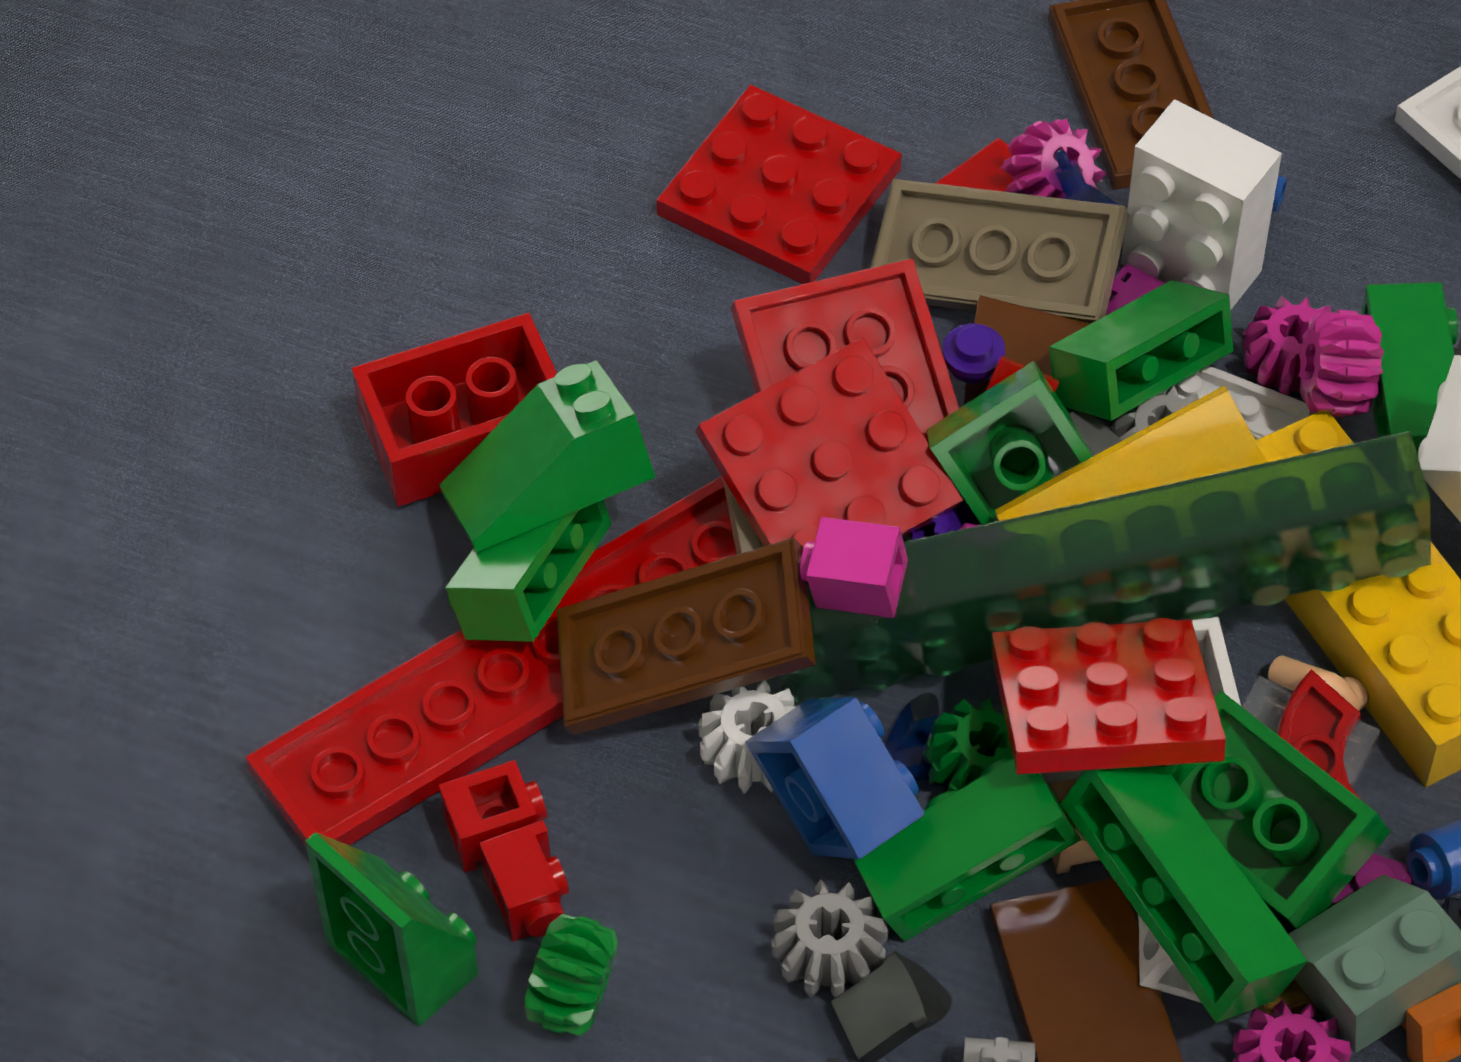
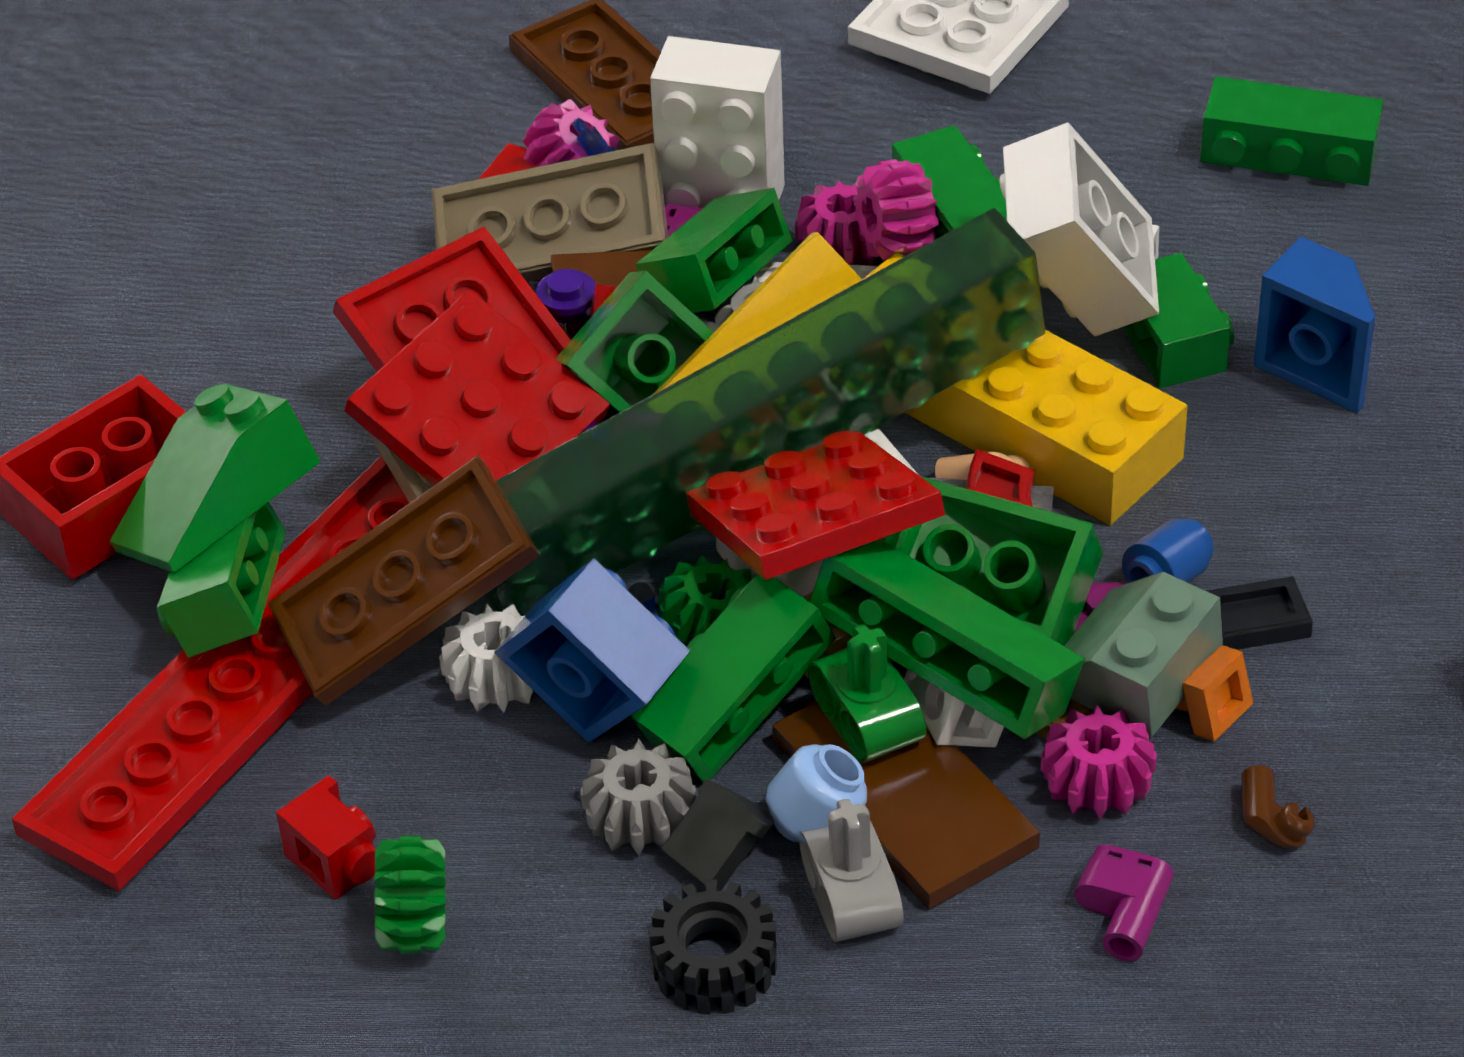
camera: 20 degrees left, 10 degrees down
(390, 928) = (216, 908): green slope -> none
(488, 806) = (261, 786): red brick -> none
(779, 185) = (321, 230): red plate -> none
(855, 567) = (545, 460): dark pink brick -> none
(996, 1000) = (811, 787): none -> light blue head
(1085, 919) = (867, 697): none -> green beam

